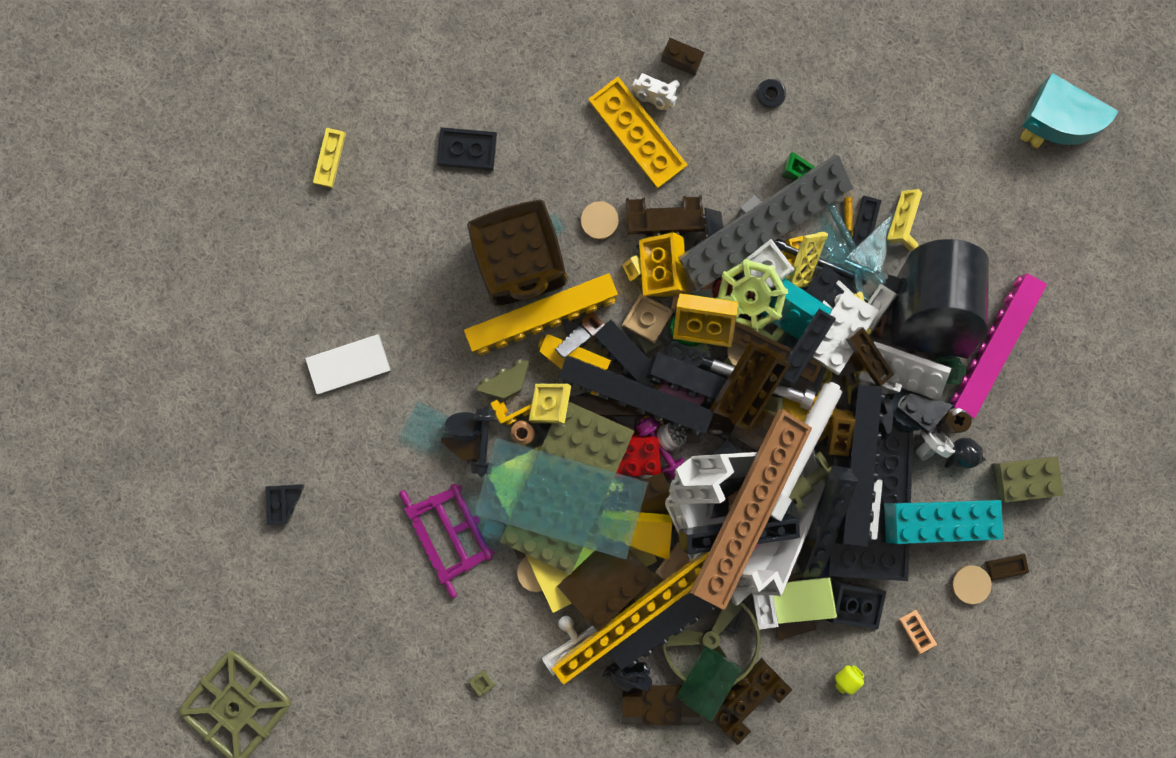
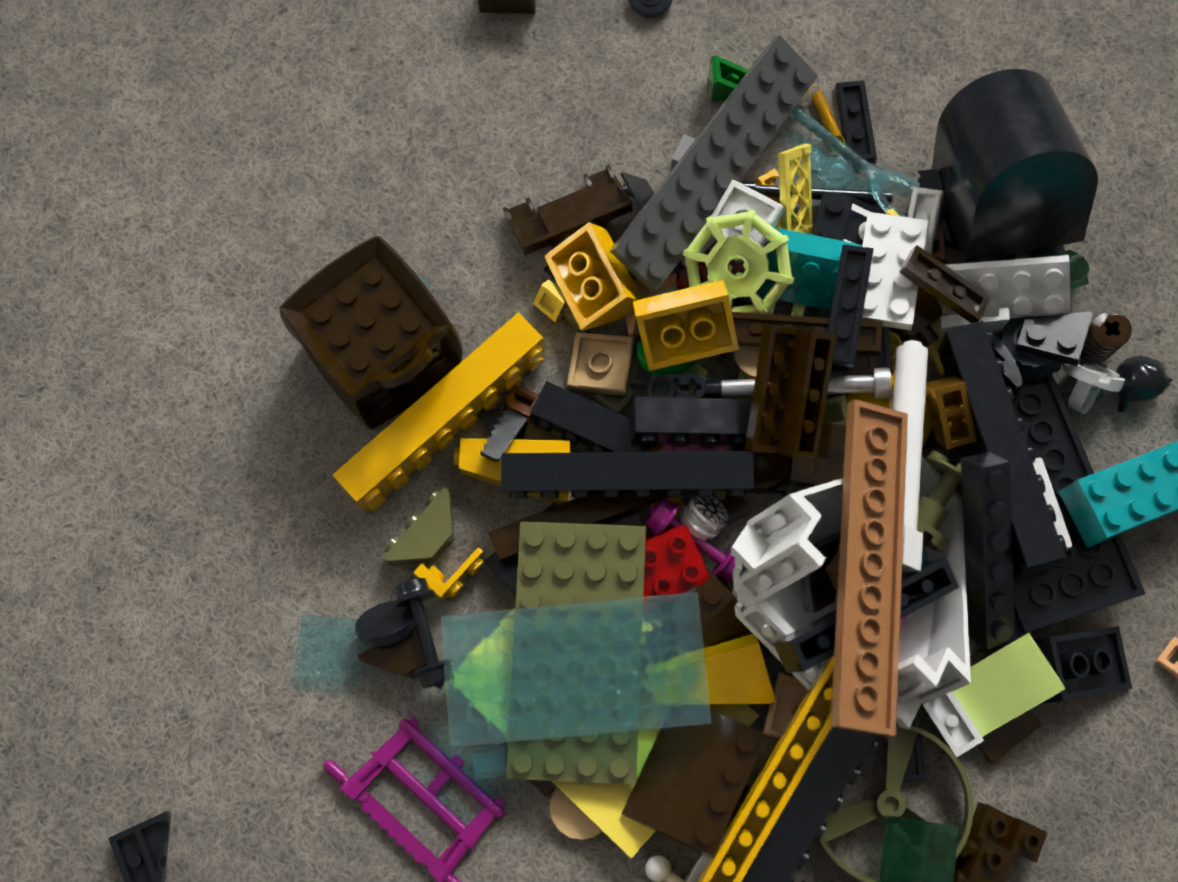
camera: 20 degrees left, 10 degrees down
(329, 158) = (46, 311): light yellow plate -> none
(348, 364) = (175, 601): white tile -> none
(467, 148) = (246, 226): black tile -> none
(516, 435) = (475, 589): medium nougat head -> none
(550, 403) = (503, 535): light yellow tile -> none
(599, 220) = (476, 254): tan tile -> none
(637, 132) = (484, 115): yellow plate -> none
(655, 92) = (487, 51): white brick -> none
(849, 679) = (1125, 782): neon yellow head -> none
(872, 251) = (882, 147): clear light blue wing -> none
(904, 218) = (907, 91): light yellow piece -> none
(998, 344) = (1115, 208): dark pink brick -> none

